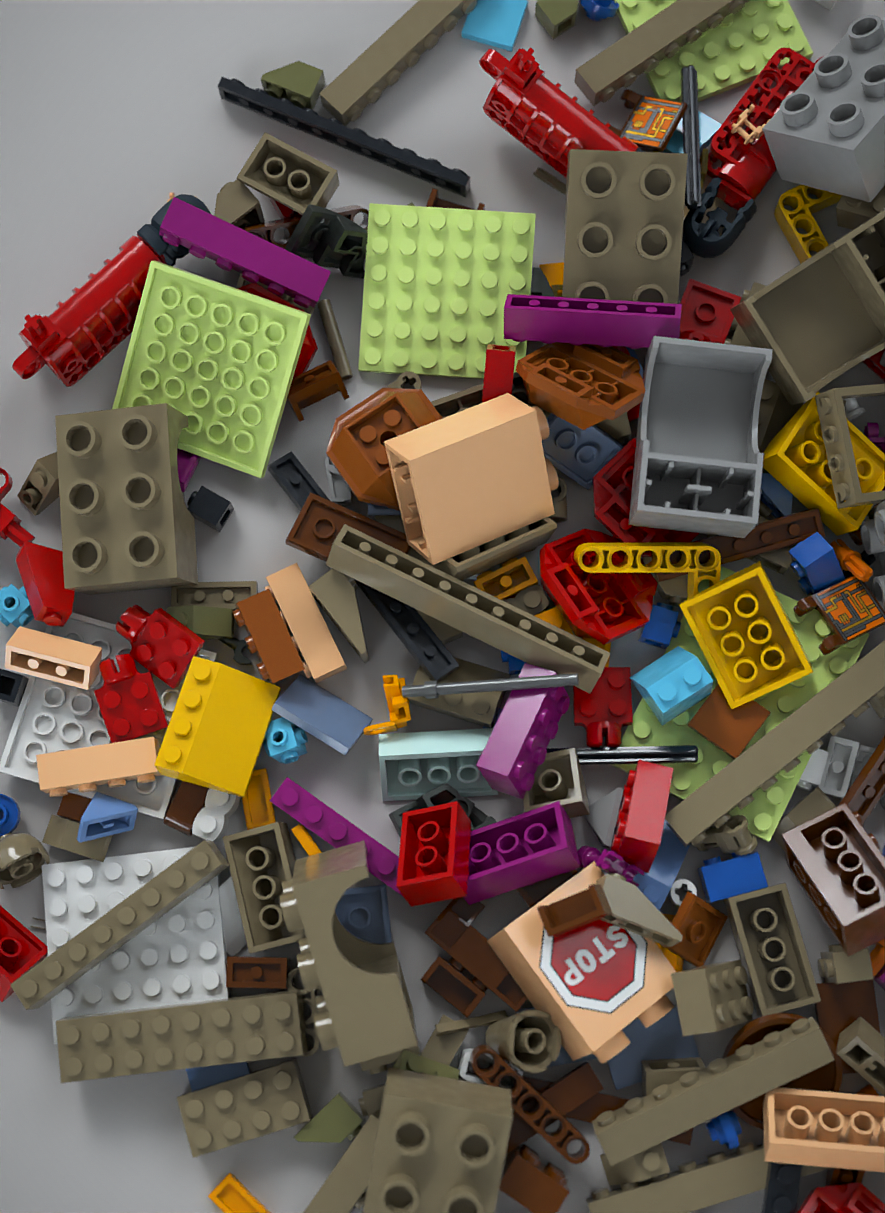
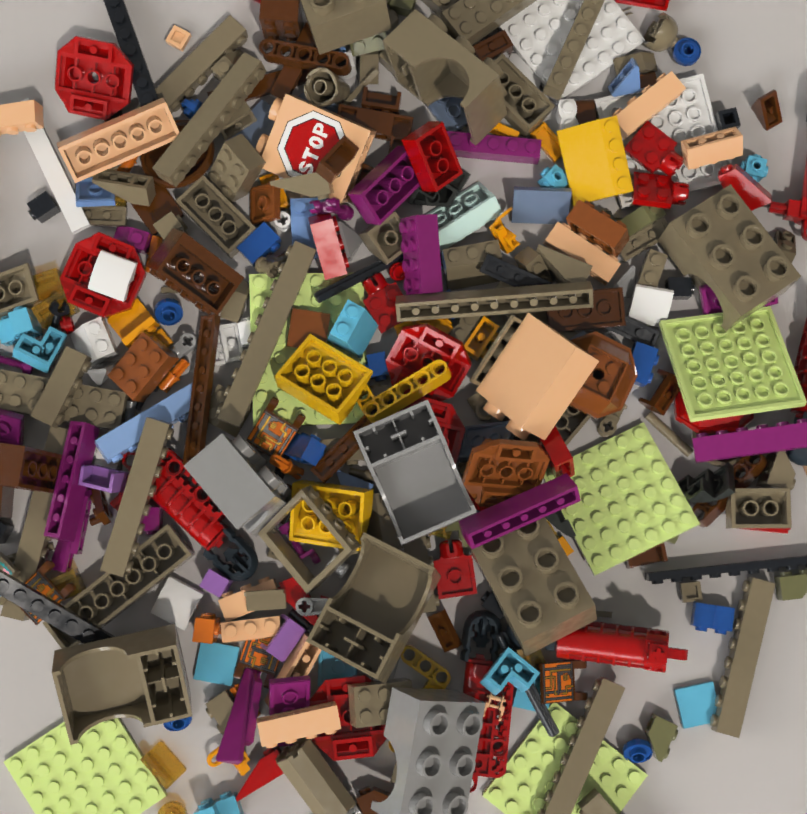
camera: 145 degrees right, 5 degrees up
(232, 548) = (652, 268): none -> dark tan brick
(260, 504) = (650, 304): none -> white slope
(275, 553) = (627, 281): none -> light grey slope
(311, 441) = (644, 359): none -> blue brick
(379, 642) = (533, 263): none -> dark tan slope
(417, 101) = (712, 617): none -> blue brick
(425, 142) = (691, 591): none -> dark tan plate
(433, 689) = (486, 248): dark grey bar -> none
(565, 737) = (396, 271): none -> red plate
(711, 154) = (512, 669): none -> medium azure brick
(754, 256) = (444, 630): none -> reddish brown plate

